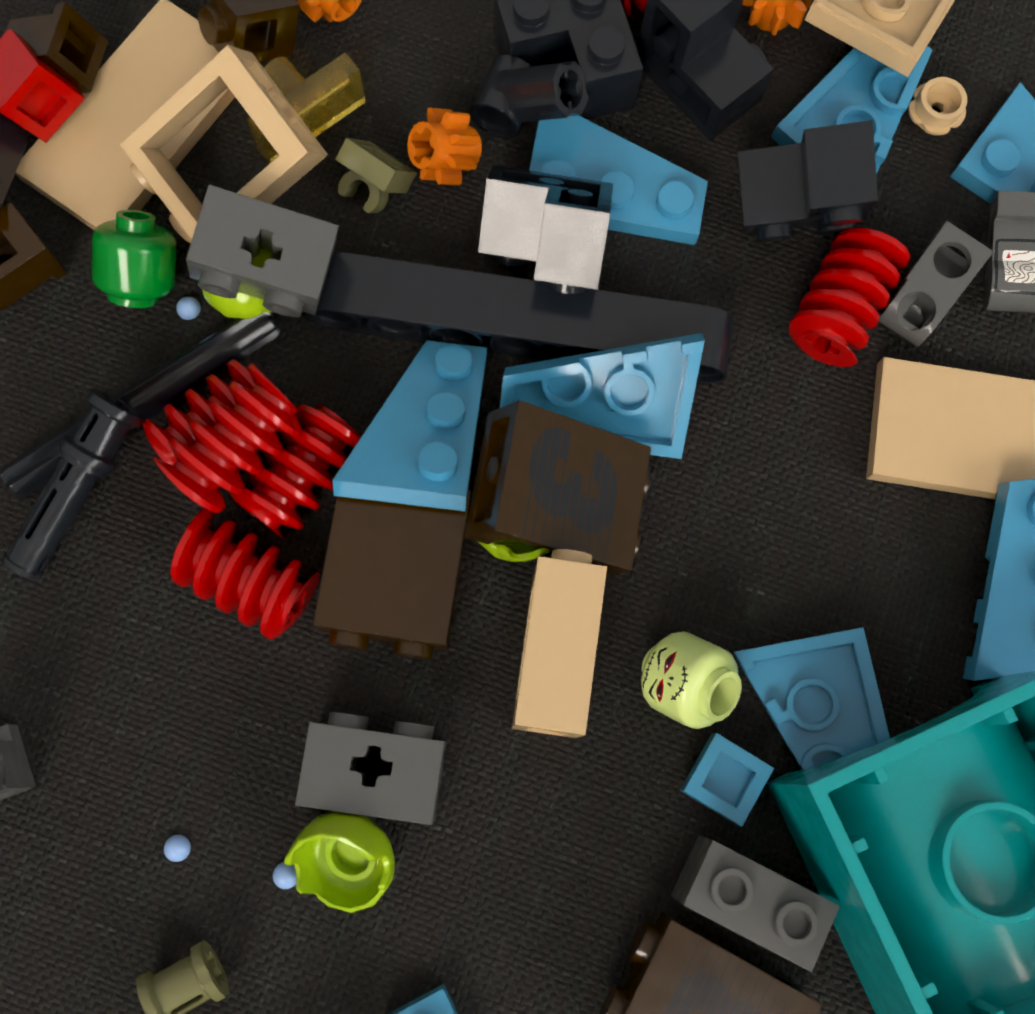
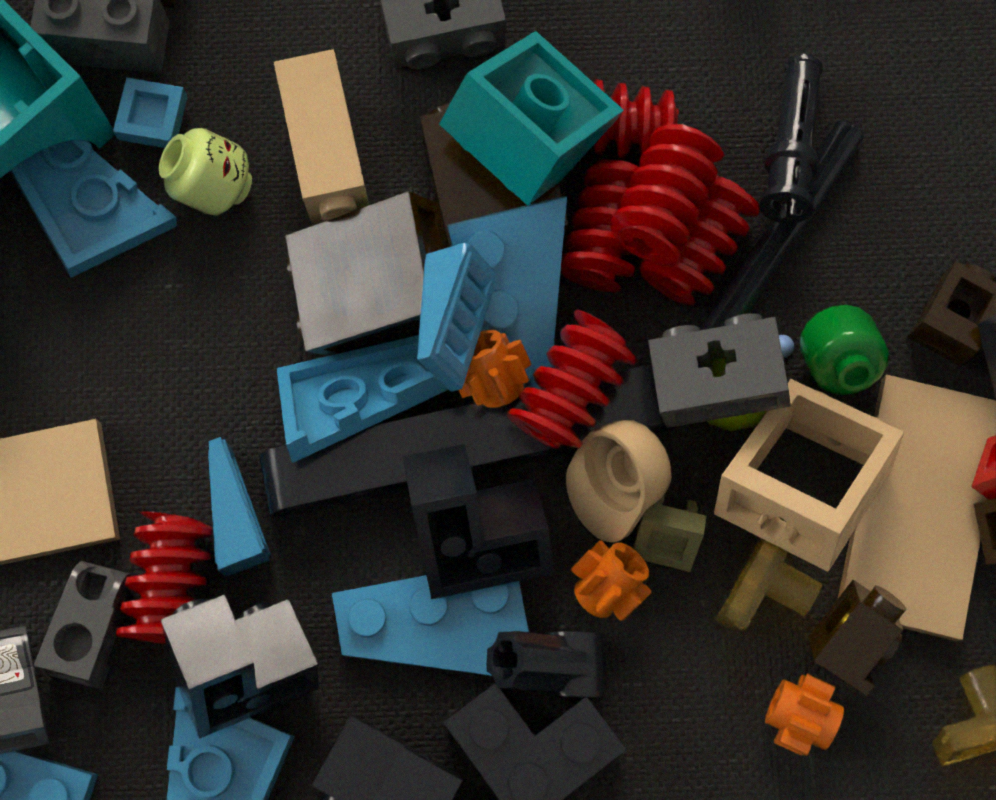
camera: 165 degrees right, 0 degrees up
(330, 577) = (529, 116): none -> teal slope
(398, 215) = (617, 478): none -> tan cap
(406, 293) = (572, 382): none -> red piece
(479, 347) = (496, 370): none -> orange gear
(498, 392) = (453, 311): none -> dark azure slope
(767, 320) = (236, 528): none -> dark azure slope

